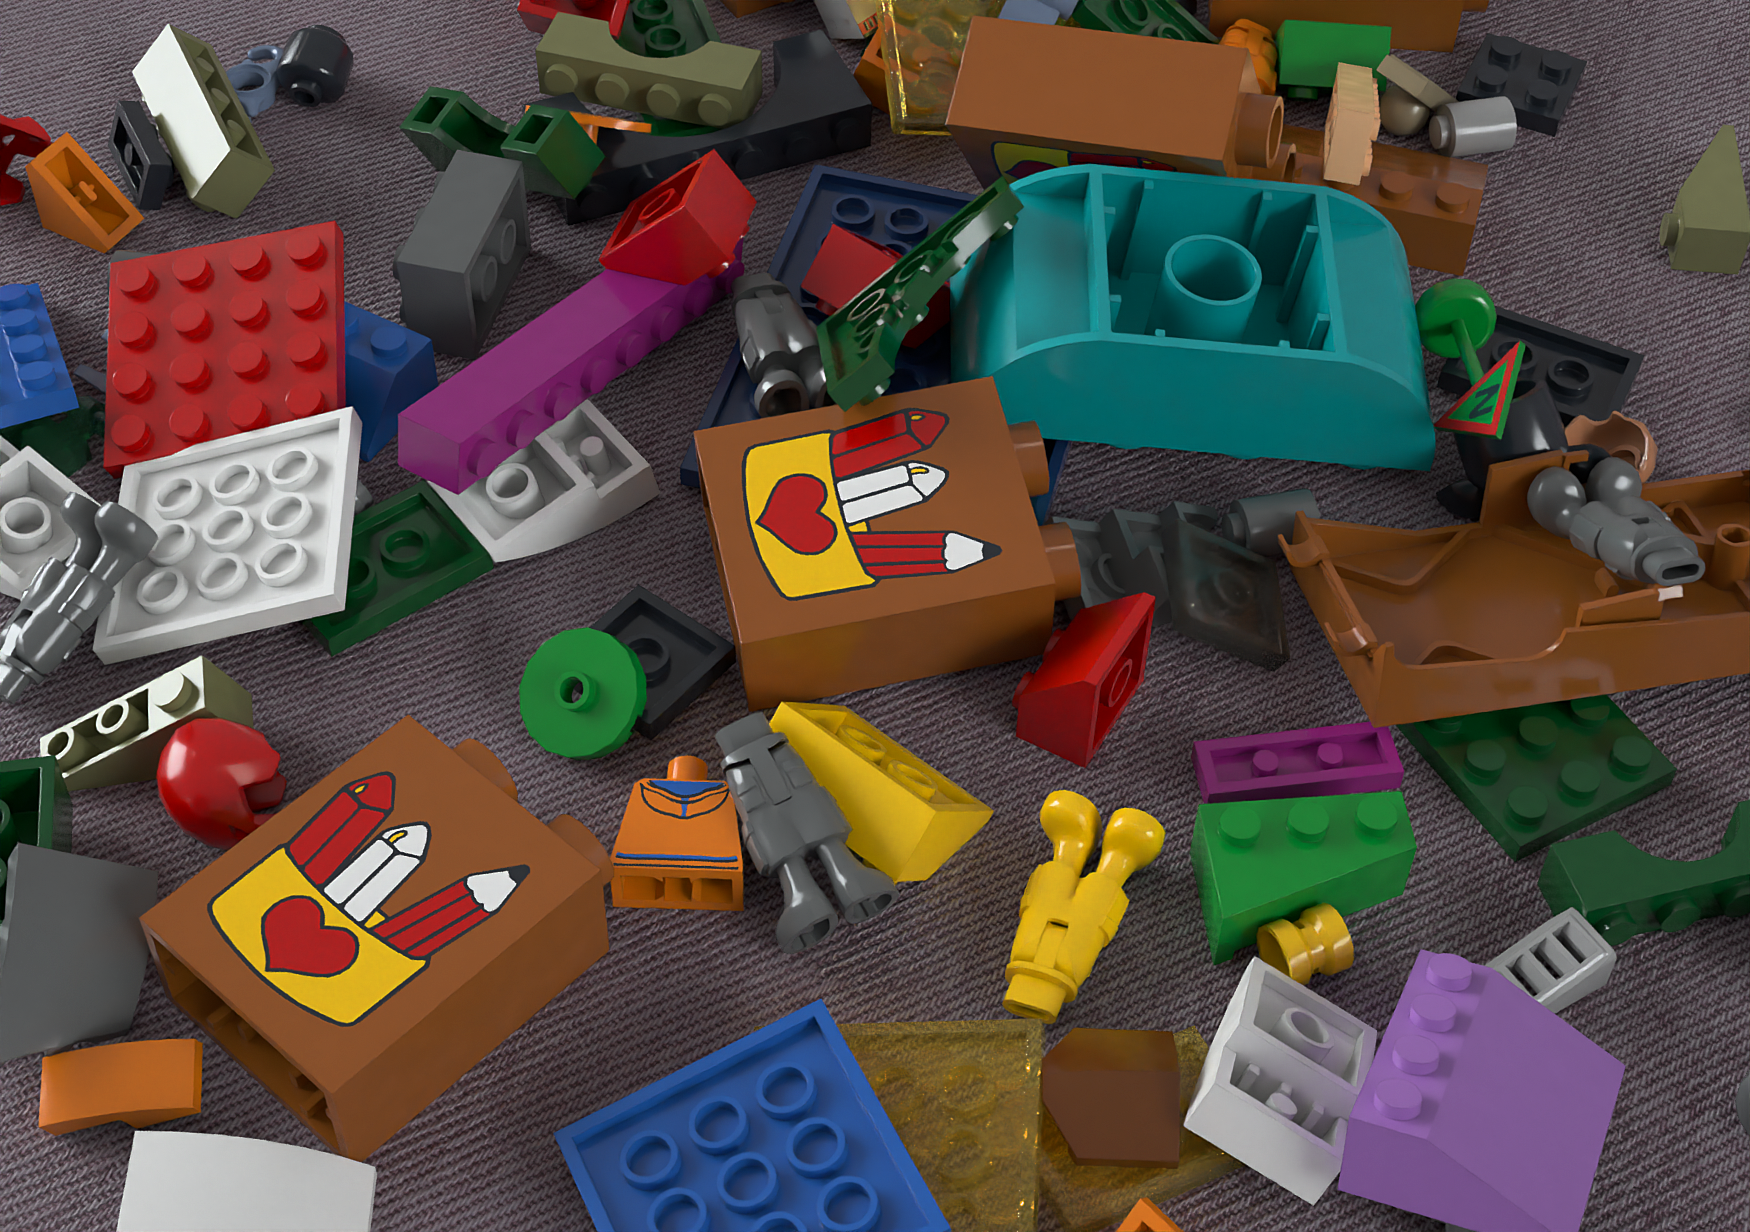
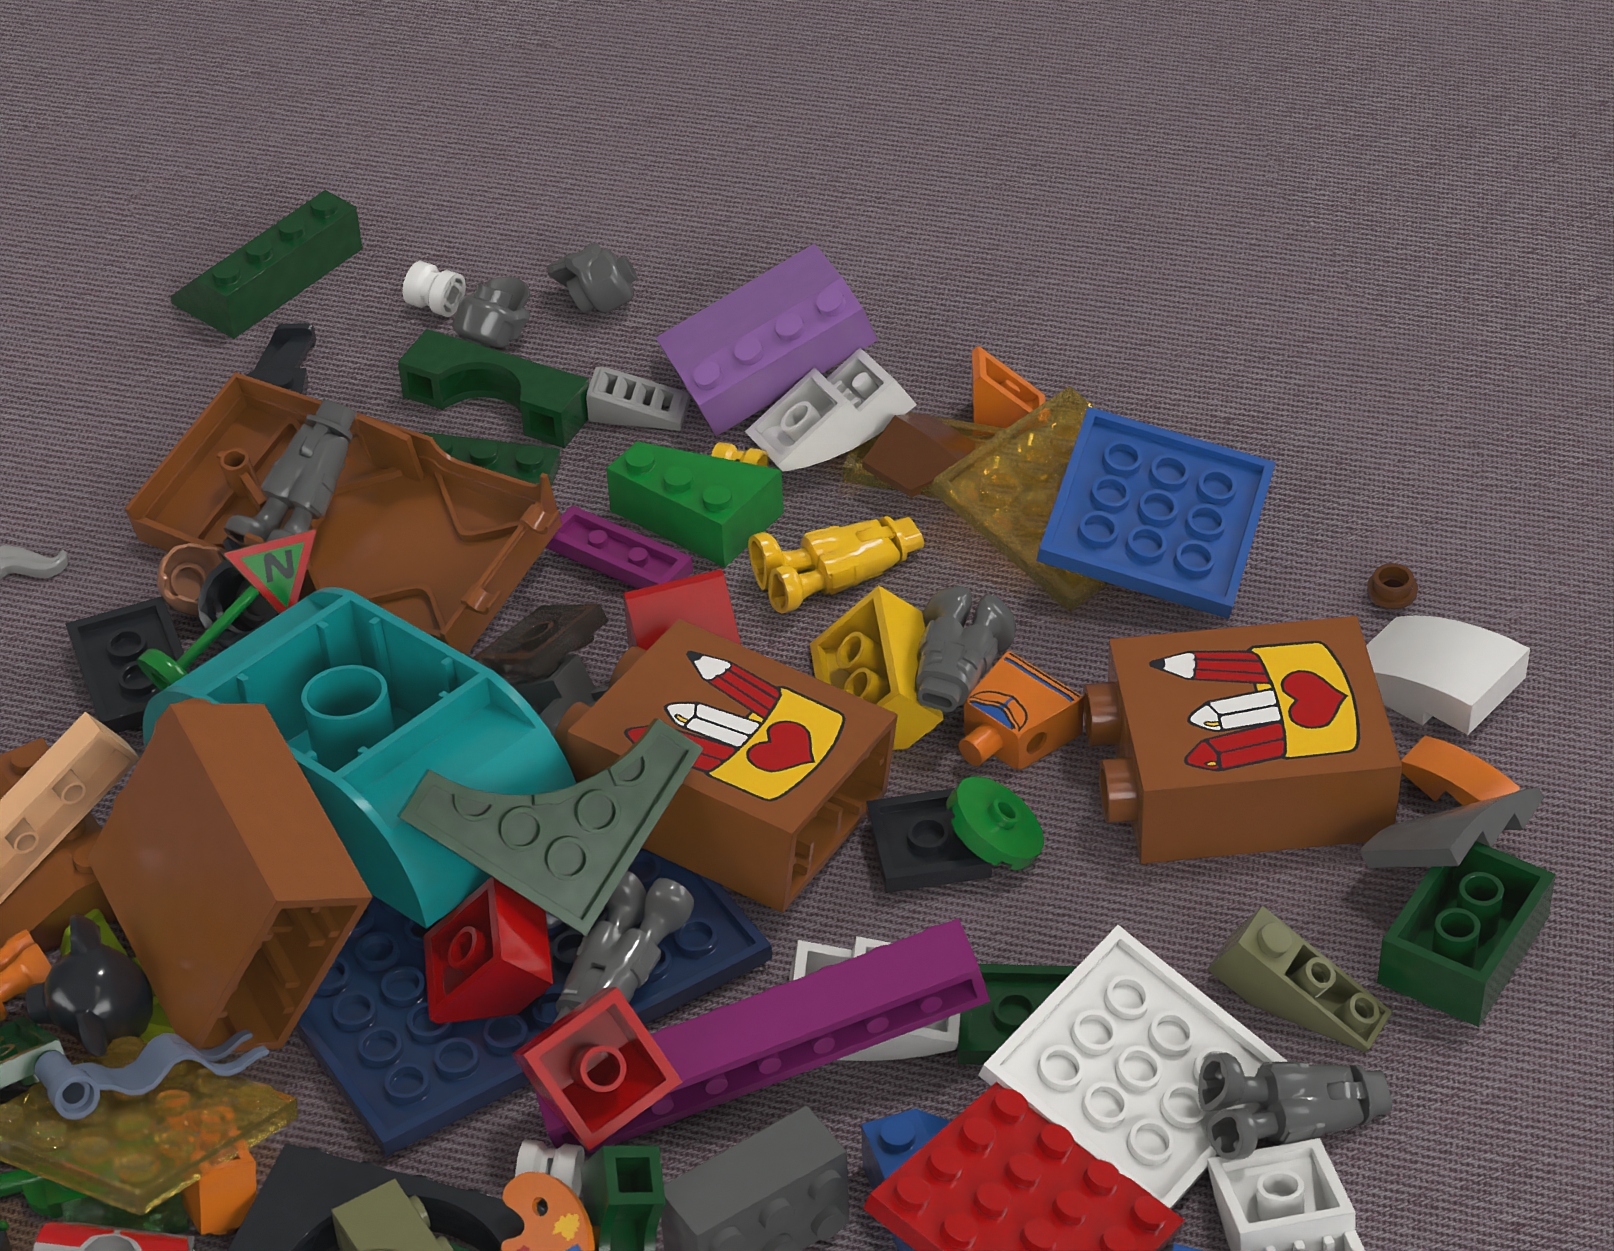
camera: 135 degrees left, 5 degrees down
(216, 778) = (1278, 878): red helmet -> none

